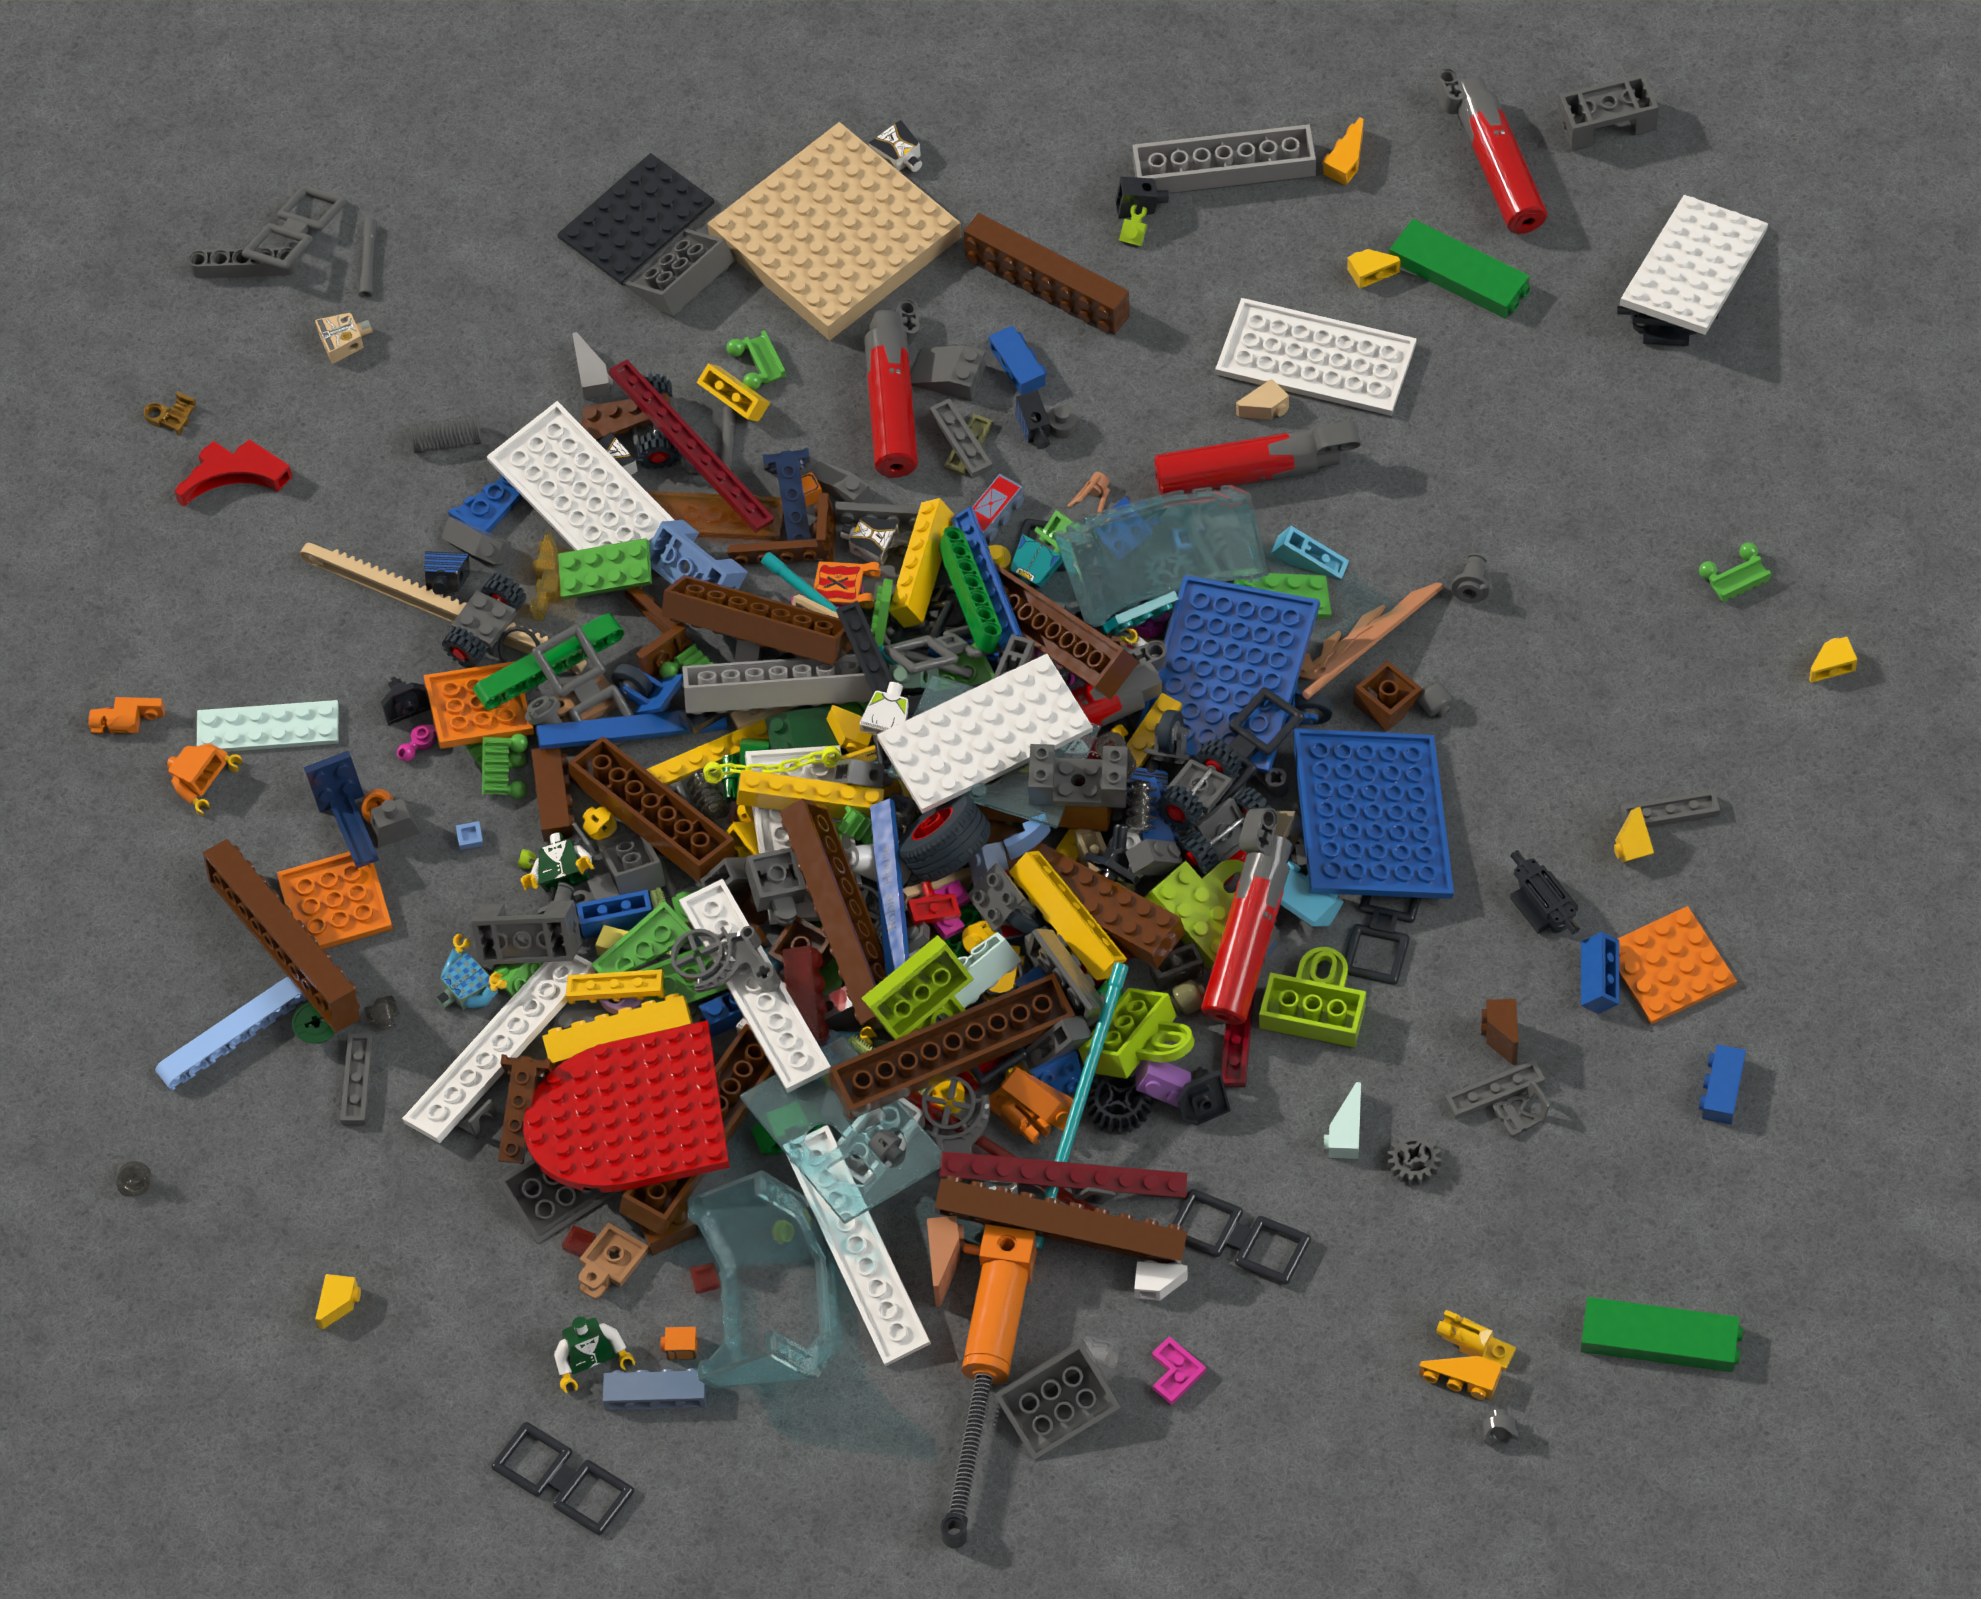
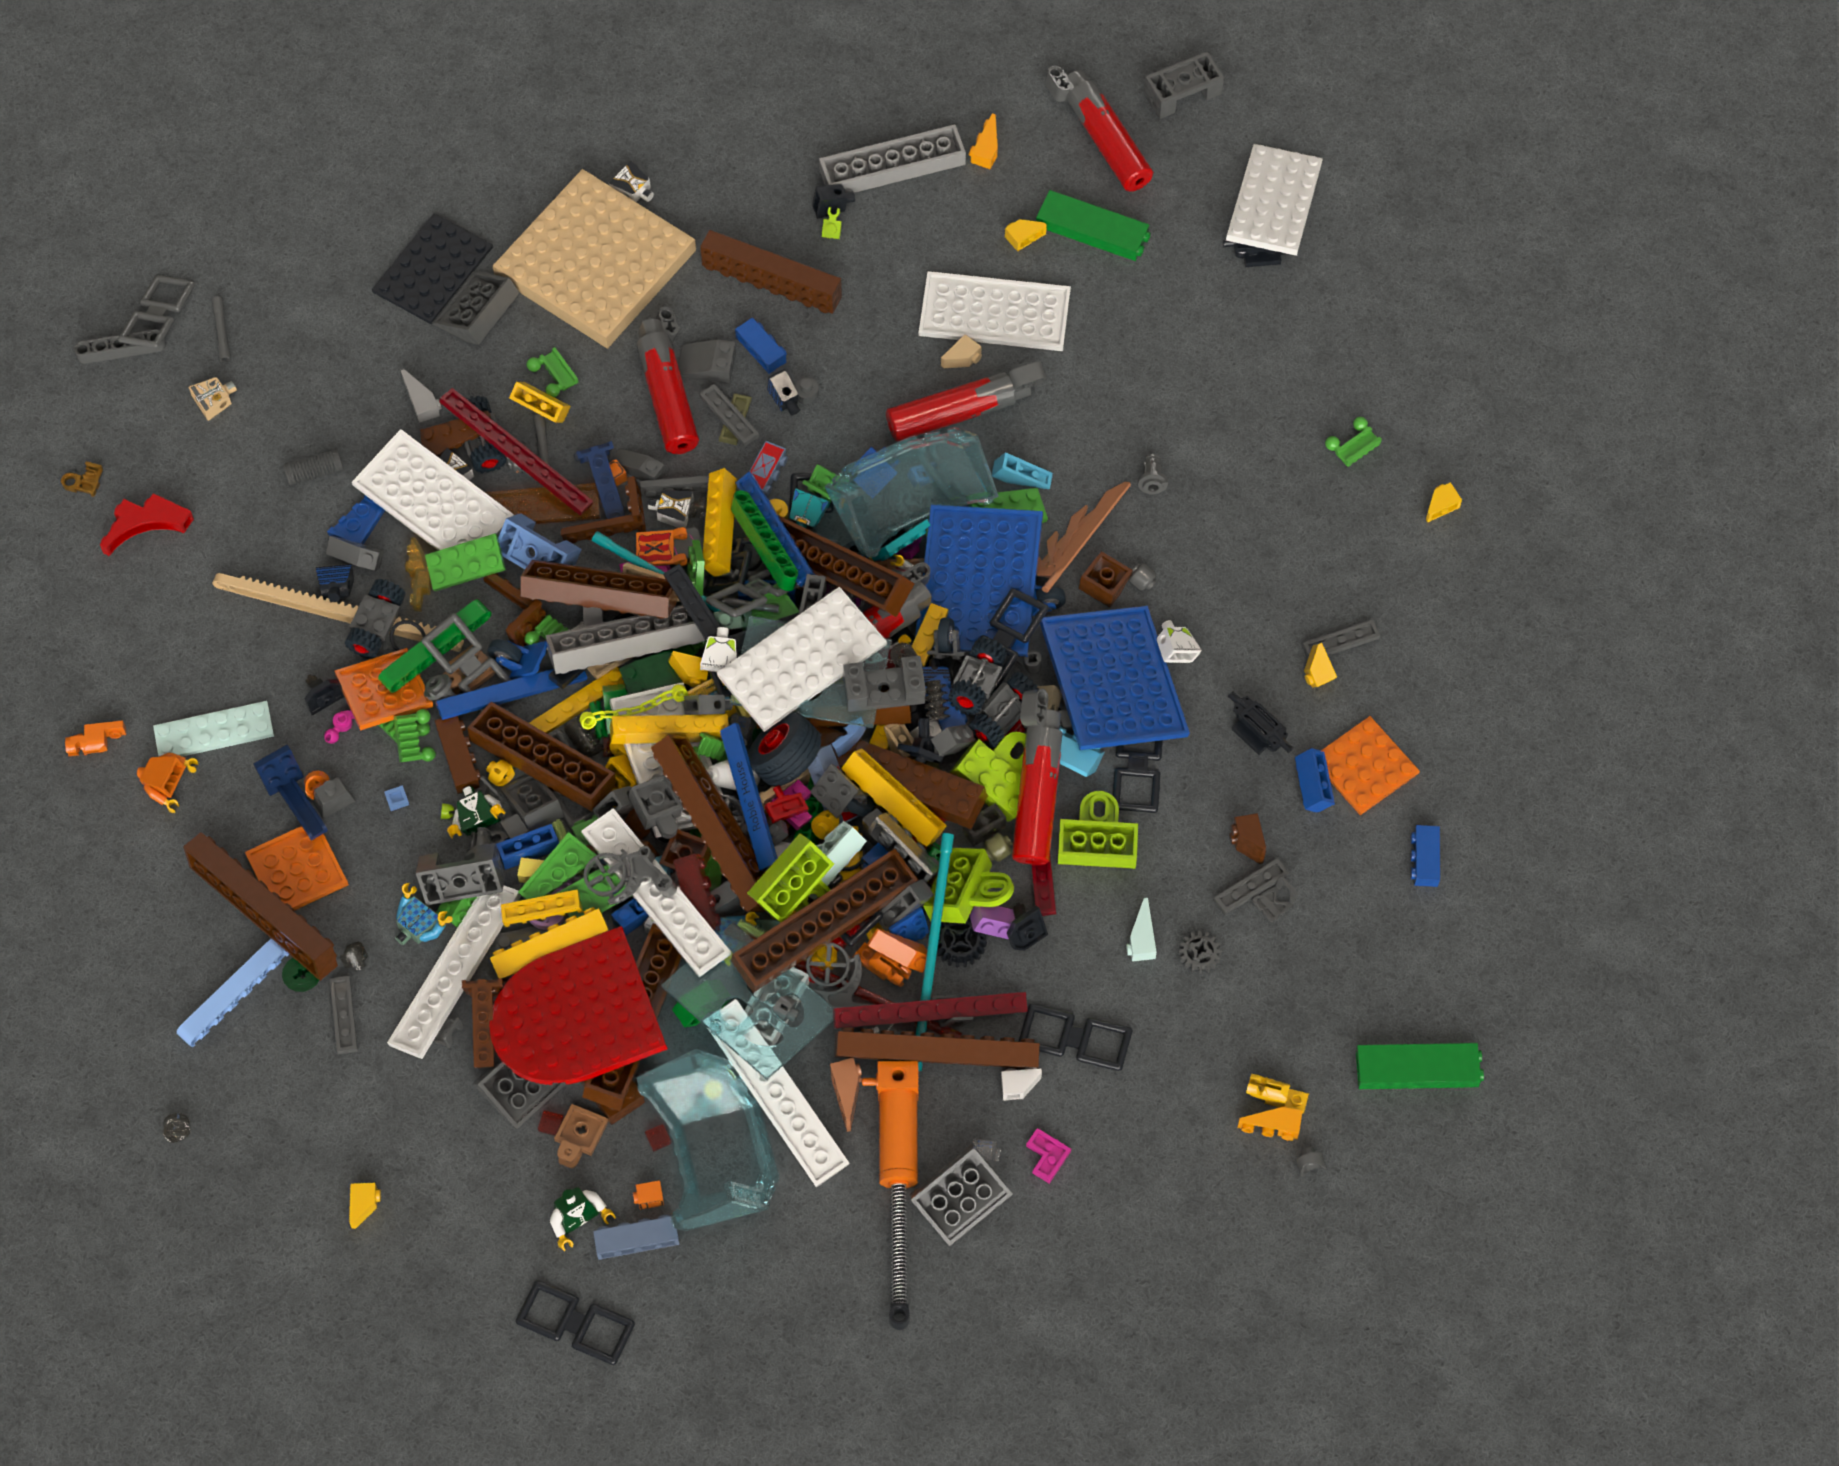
camera: 15 degrees left, 5 degrees up
(1095, 486) = (842, 440): nougat plant -> none
(1461, 785) = (1177, 644): none -> white torso

